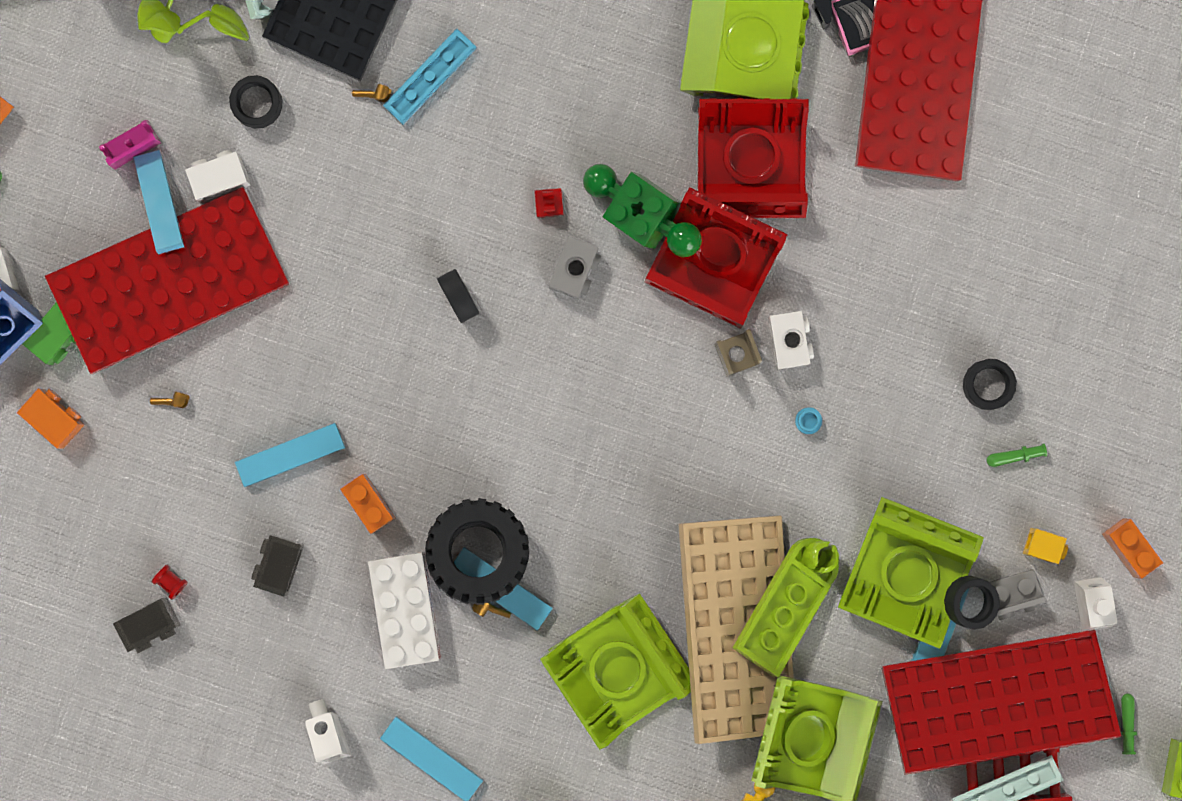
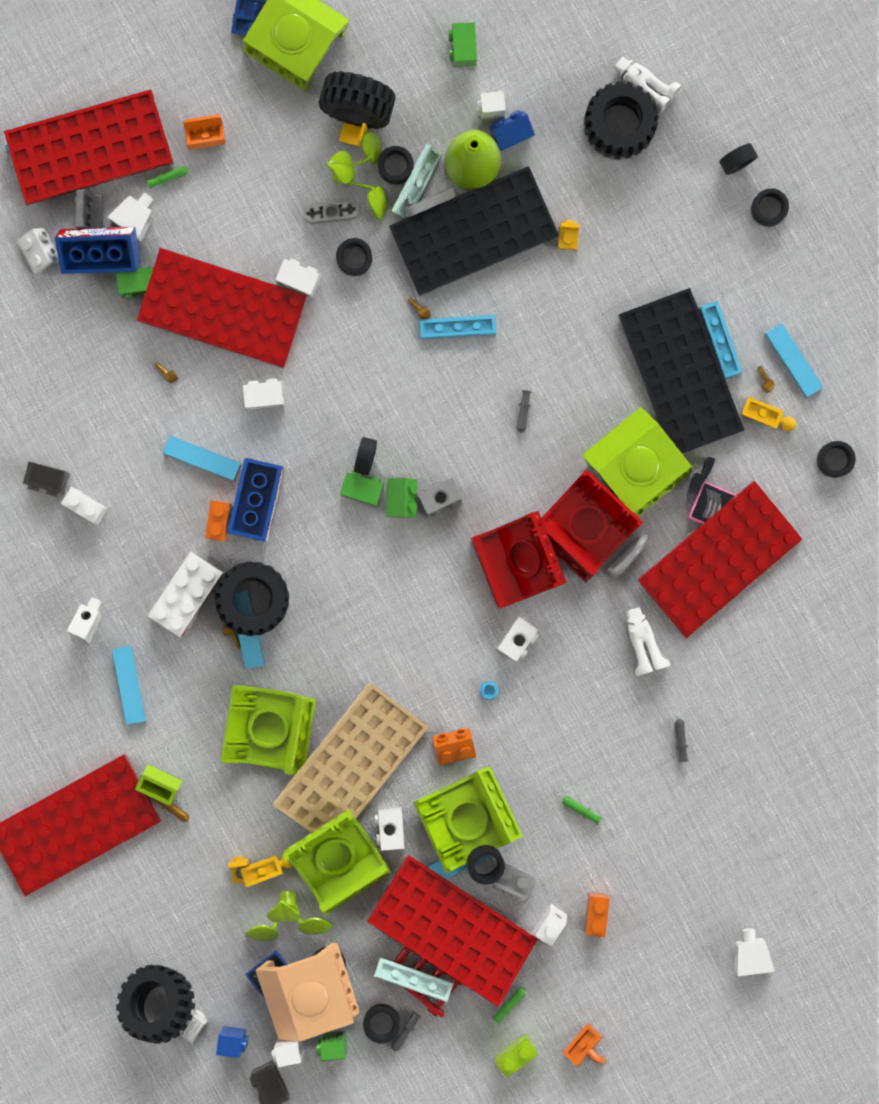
camera: 40 degrees right, 0 degrees up
(51, 418) = (95, 324): orange brick -> none
(130, 144) = (268, 219): dark pink hinge -> none
(158, 202) = (254, 263): medium azure tile -> none
(169, 582) = (78, 466): red bush -> none
(187, 66) = (317, 218): none -> light grey beam
(213, 616) = (84, 506): none -> white brick
(277, 565) = (142, 509): clear smoke brick -> none
(293, 330) = (263, 395): none -> white brick
(386, 445) = (256, 499): none -> blue brick
(485, 333) = (361, 488): none -> bright green brick
(535, 304) = (401, 498): none -> bright green brick
(549, 203) = (458, 451): red tile -> none
(582, 106) = (522, 420): none -> dark grey piece
(625, 210) = (506, 489): green brick -> none
(750, 349) = (490, 628): dark tan piece -> none
(789, 604) = (388, 777): lime plate -> none
(822, 151) = (627, 556): none -> light grey piece
(826, 510) = (454, 746): none -> orange bracket
(854, 664) = (395, 818): none -> white brick
(910, 216) = (640, 633): none -> white piece
(1010, 384) = (587, 759): black tyre -> none
(1045, 546) = (552, 871): yellow brick -> none
(1051, 288) = (680, 732): none -> dark grey piece

